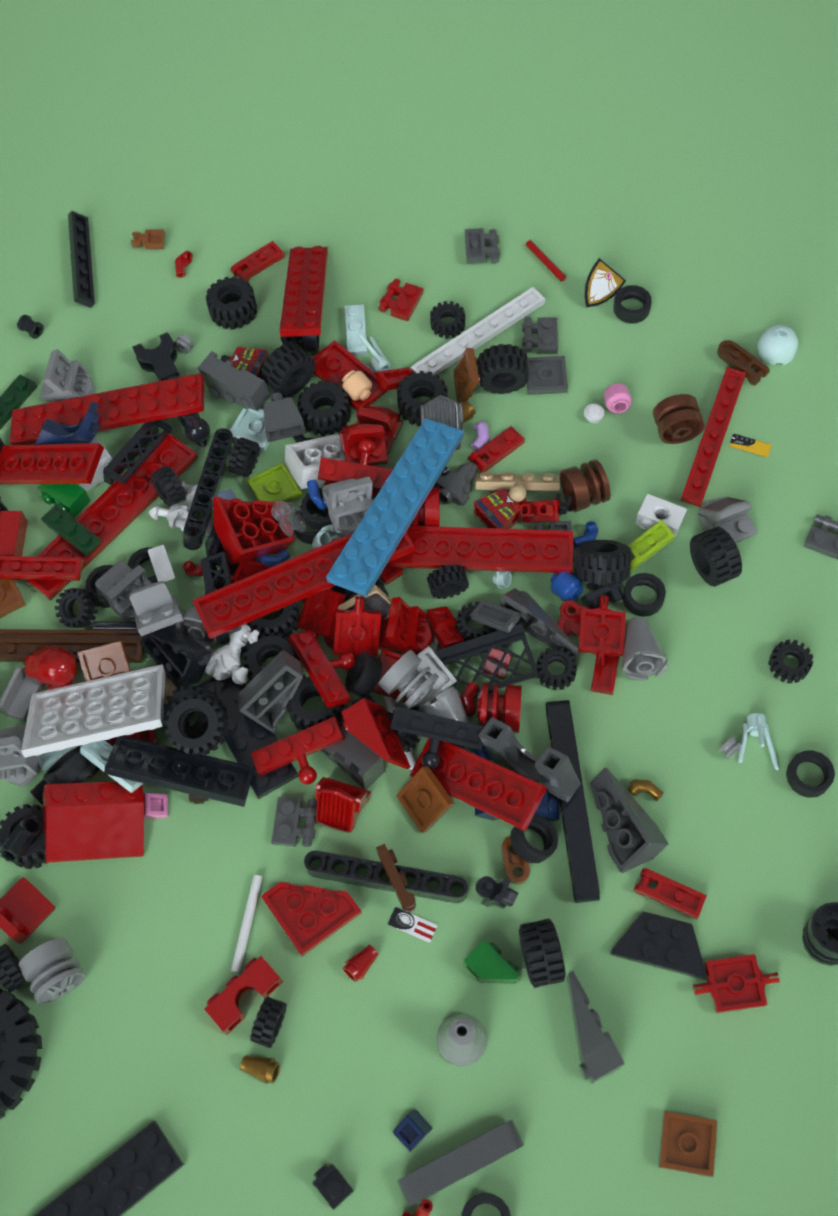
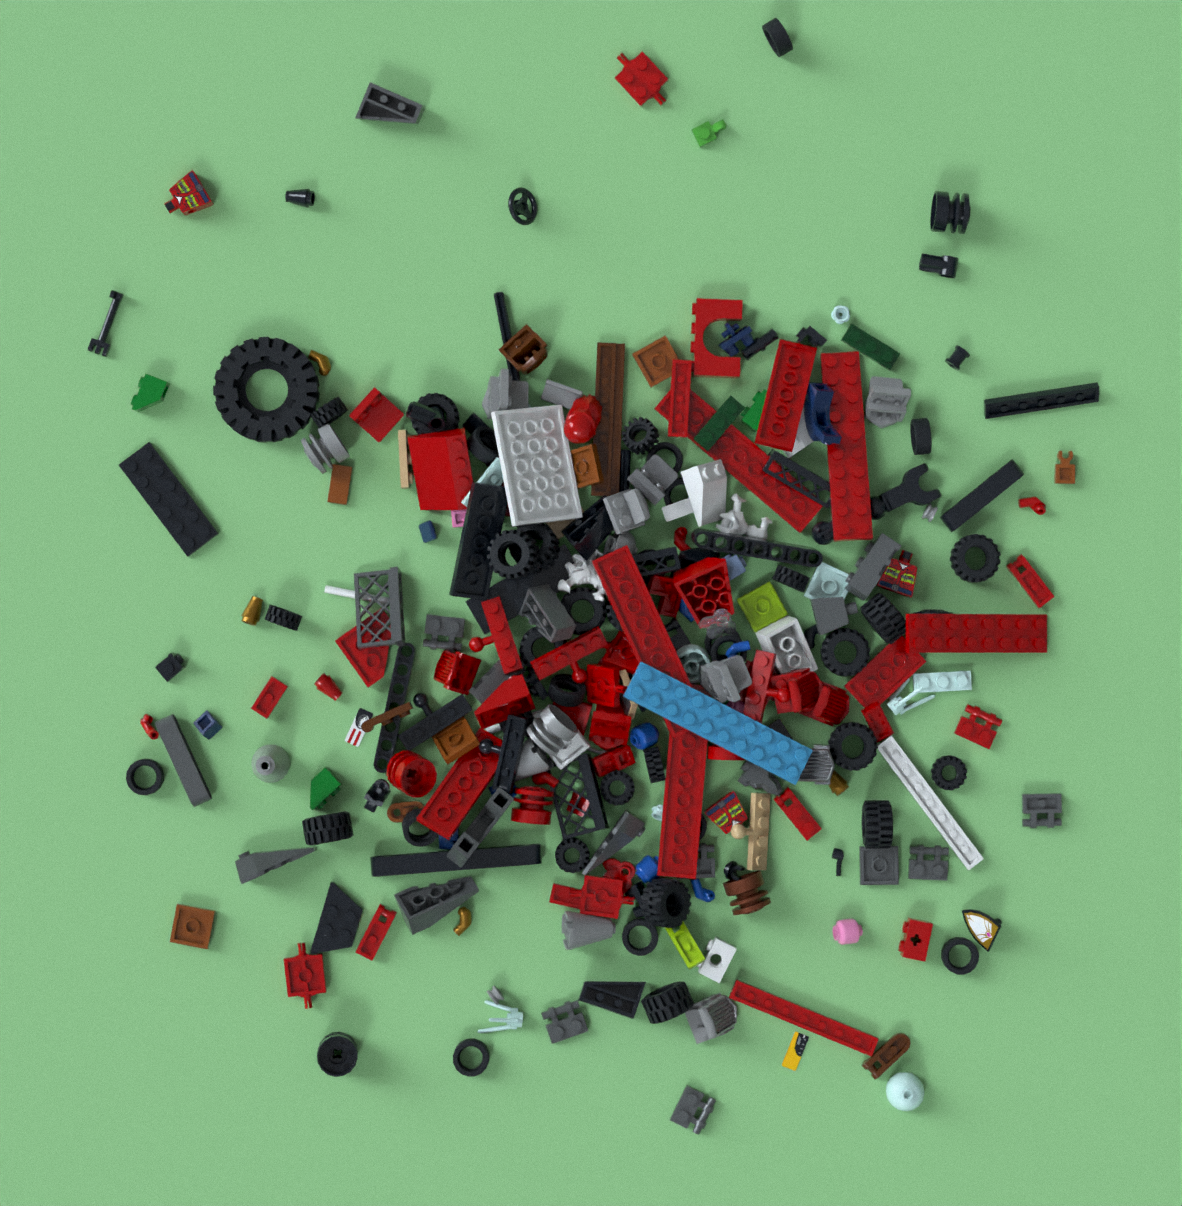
camera: 90 degrees right, 25 degrees up
(78, 873) = (405, 460): none -> tan plate
(104, 956) = (339, 484): none -> dark orange tile
(105, 339) = (920, 436): none -> black tyre
(137, 537) = (707, 491): none -> white slope
(168, 485) = (758, 510): black tyre -> none
(170, 302) = (982, 495): none -> black beam
(170, 843) = (428, 531): none -> dark blue slope
(225, 1006) = (319, 607): red arch -> none
(253, 876) = (396, 608): none -> dark grey fence
(357, 385) = (864, 684): light nougat head -> none
(374, 1041) = (269, 697): none -> red plate
(402, 828) = (434, 721): none -> black plate
(416, 593) = (644, 735): none -> blue head
(466, 375) = (872, 788): dark orange plate -> none
(467, 847) = (411, 773): none -> red wheel
(483, 435) = (813, 802): lavender arm -> none
(495, 616) = (615, 805): dark grey tile -> none
(538, 410) = (838, 855): none -> black hand
(540, 511) = (723, 851): red hips -> none
(545, 260) = (1022, 873): red bar -> none
(593, 413) = (834, 908): white plate -> none
(619, 339) = (919, 949): none -> red brick
(678, 419) = (815, 985): copper wheel -> none
(716, 615) = (613, 996): none -> black wedge
(757, 668) = (565, 1027): none -> dark grey plate
(798, 652) = (572, 1067): black tyre -> none

